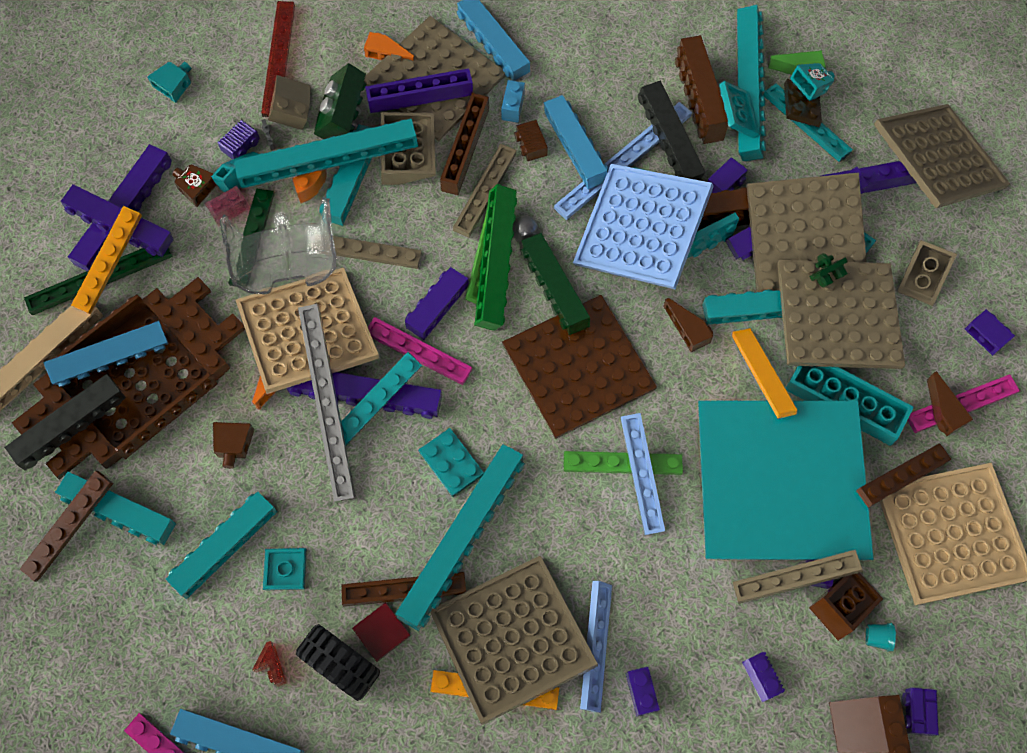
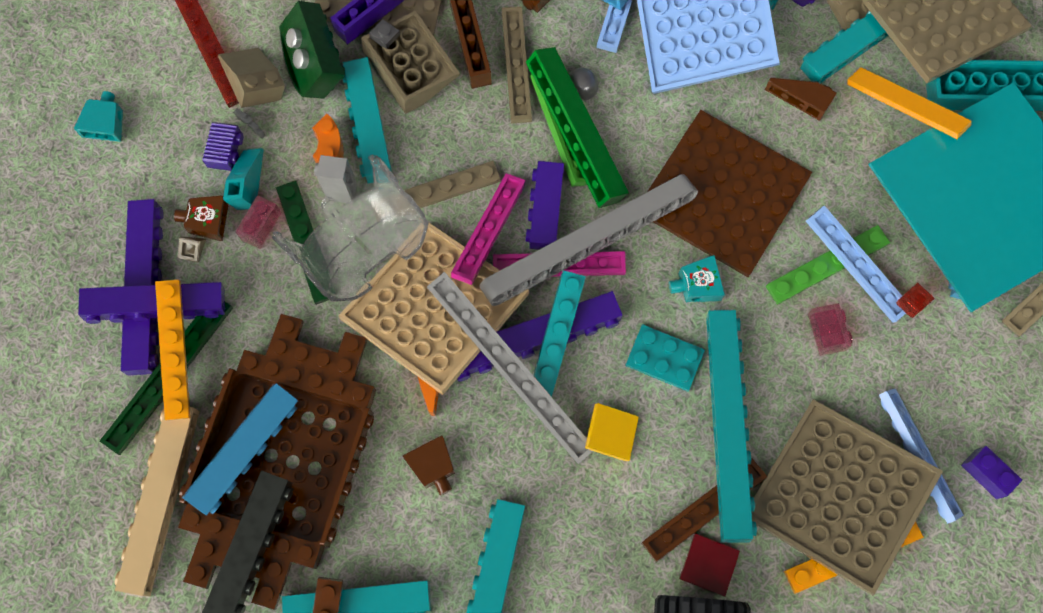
camera: 30 degrees left, 5 degrees up
(171, 200) = (192, 247): none -> dark tan slope
(284, 569) = (572, 560): teal tile -> none
(295, 202) = (336, 178): none -> light grey brick
(325, 153) = (334, 110): teal brick -> none
(373, 492) = (612, 432): none -> yellow tile
(381, 296) = (488, 229): none -> dark pink plate
(397, 115) = (384, 34): none -> flat silver plate
(447, 342) = (588, 240): none -> light grey beam
(512, 419) = (699, 281): none -> teal torso
(555, 284) = (652, 122): dark green brick -> none
(588, 511) = (830, 329): none -> clear pink brick
(669, 524) = (915, 300): none -> clear red slope

